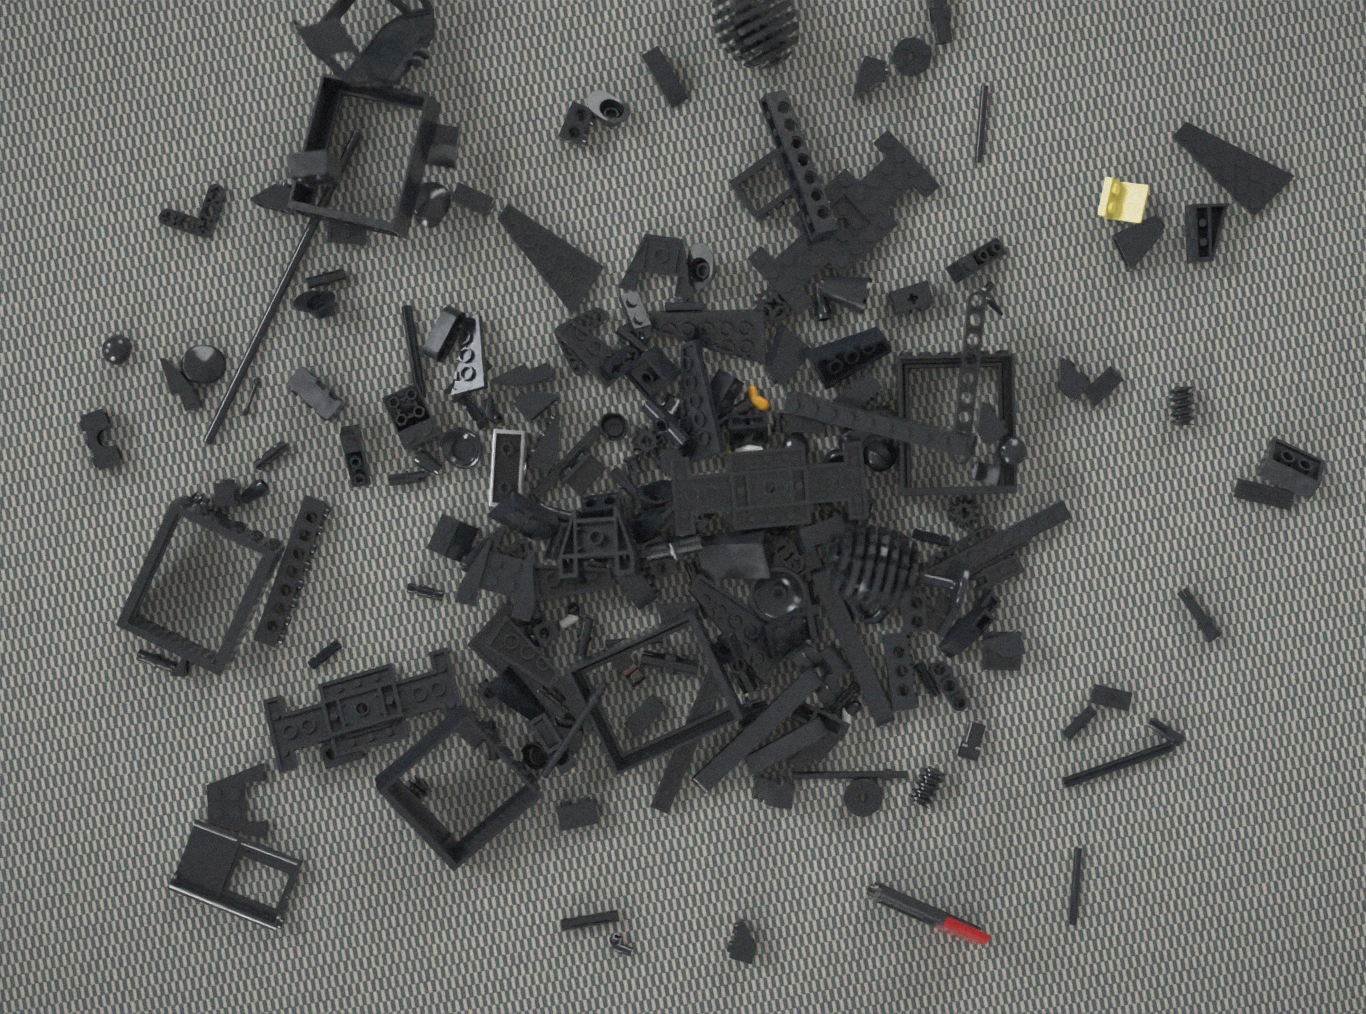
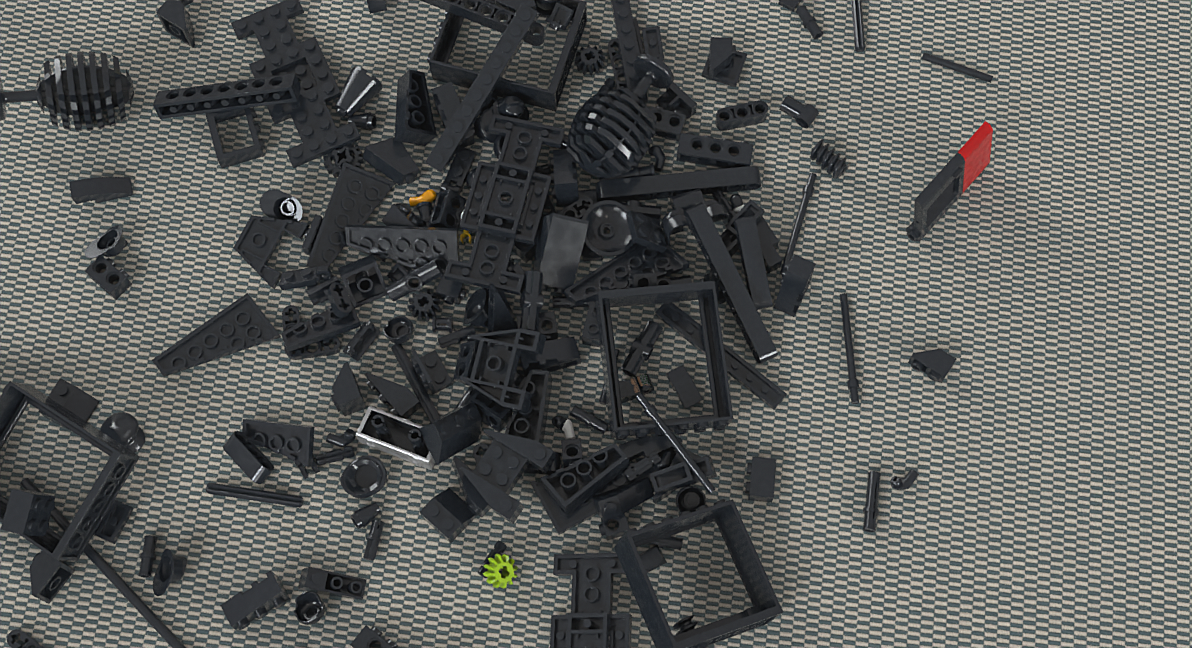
camera: 65 degrees left, 20 degrees down
(326, 445) = (309, 608): none -> black hair
(412, 418) = (316, 514): black slope -> none
(414, 604) = (500, 579): none -> lime gear
(473, 200) = (134, 390): black brick -> none
(523, 376) = (319, 396): black slope -> none
(592, 394) = (361, 341): none -> black hinge
(700, 872) = (853, 382): none -> black bar
(856, 788) = (833, 217): black plate -> none
(919, 290) = (384, 47): black brick -> none
(927, 679) = (732, 132): black axle -> none
(968, 630) = (696, 83): black slope -> none

